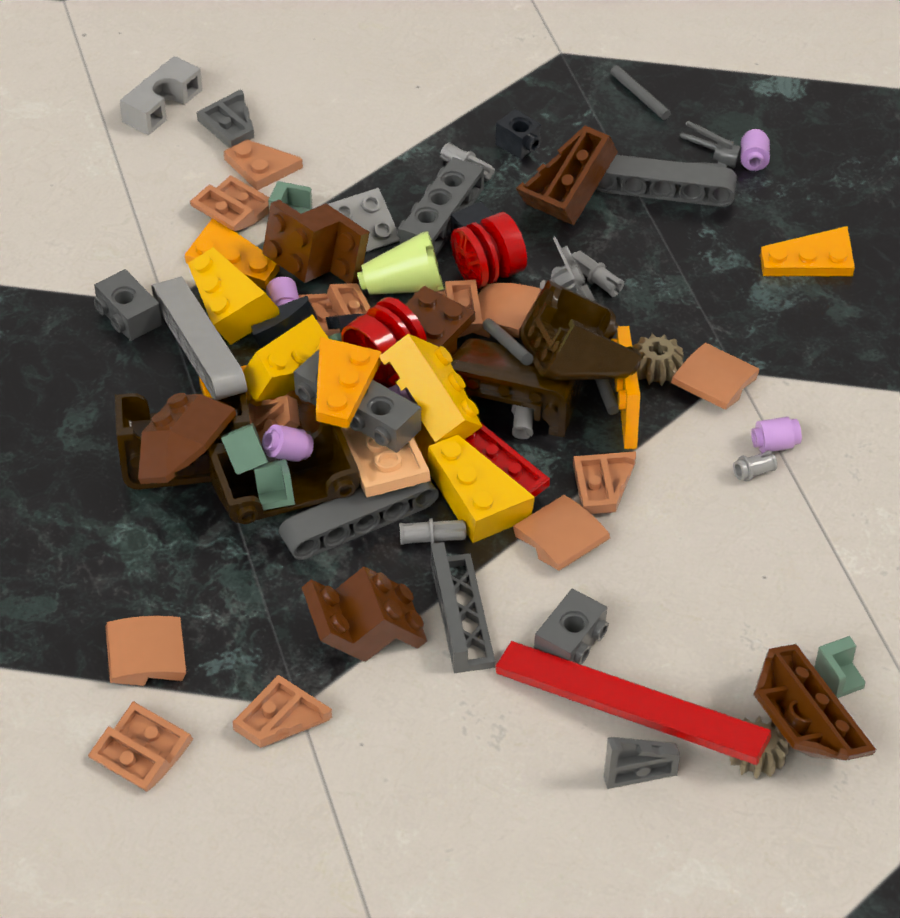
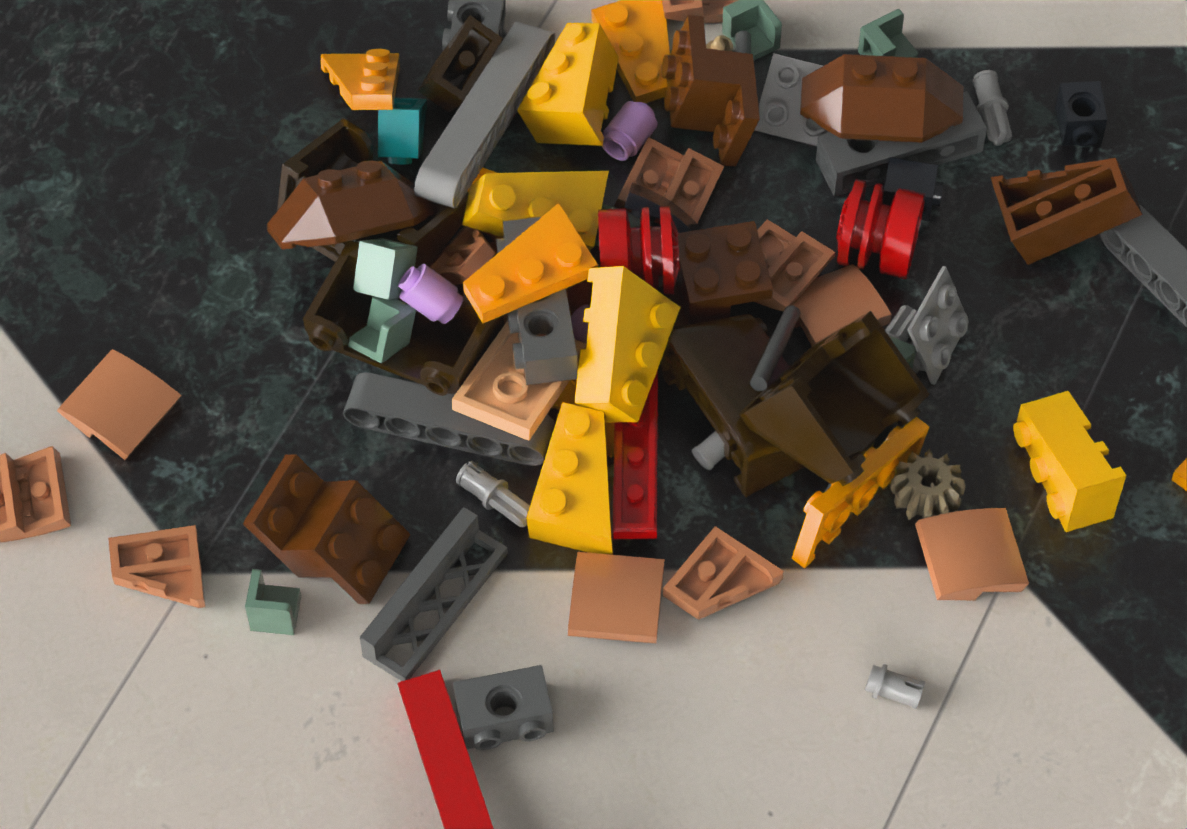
camera: 45 degrees right, 10 degrees up
(95, 368) = (364, 79): none -> light orange wing
(148, 327) = (460, 65): none -> dark brown slope
(148, 380) = (402, 130): none -> teal slope
(290, 315) = (598, 156): black slope -> none
(373, 170) = (885, 37): none -> sand green panel
(375, 684) = (271, 607): none -> sand green panel
(403, 268) = (781, 187): yellowish green cone -> none
(414, 185) = (882, 98): none -> reddish brown wedge
(597, 273) = (981, 339): light grey axle -> none
(713, 295) = (1068, 462): none -> yellow wedge
(776, 434) = (954, 670): lavender brick -> none

